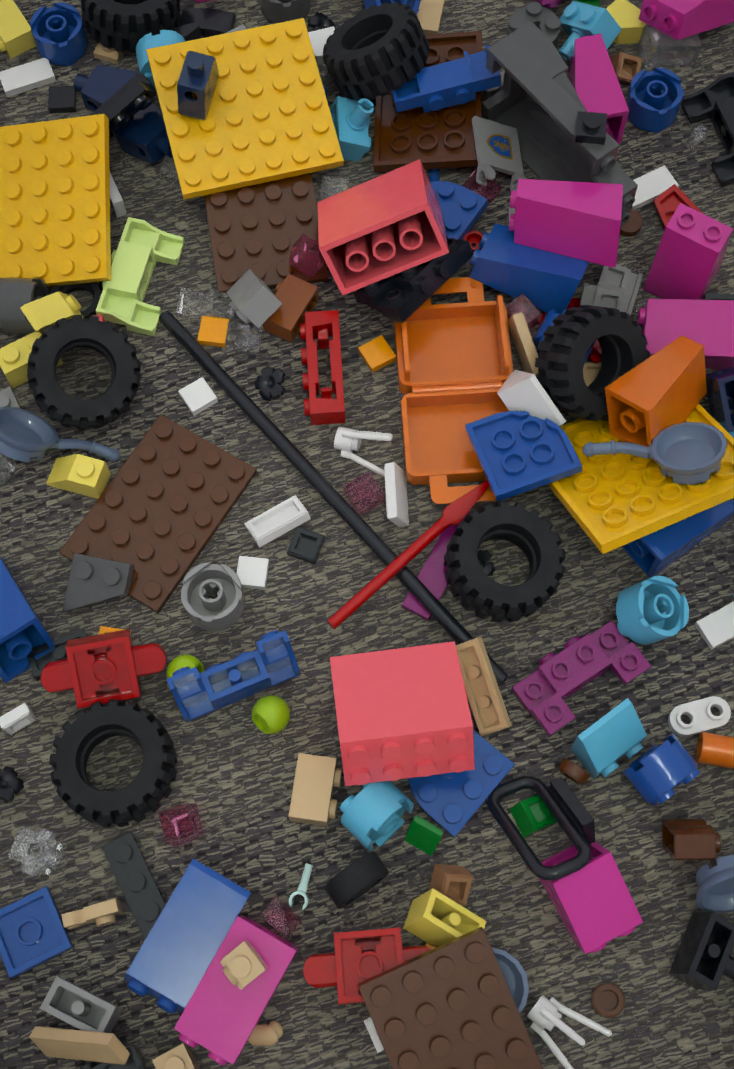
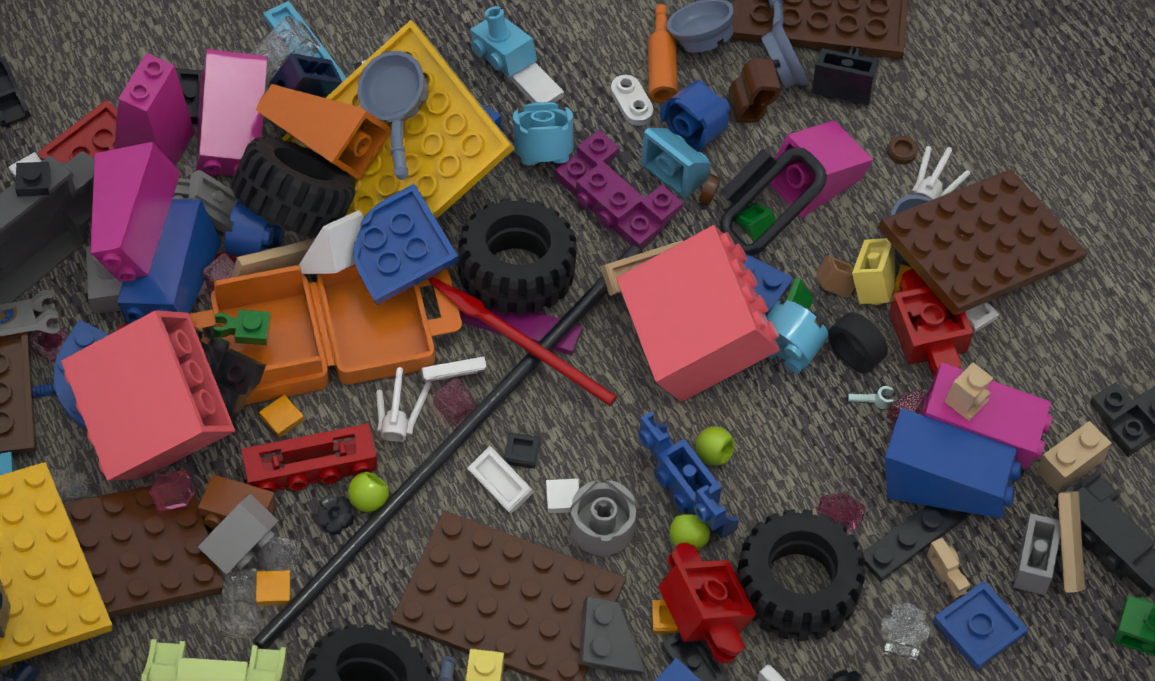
camera: 105 degrees left, 10 degrees down
(198, 396) = (360, 588): white tile -> none
(282, 408) = (367, 492): none -> lime piece
(314, 790) = (780, 397): tan brick -> none
(456, 322) = (248, 327): none -> green plate

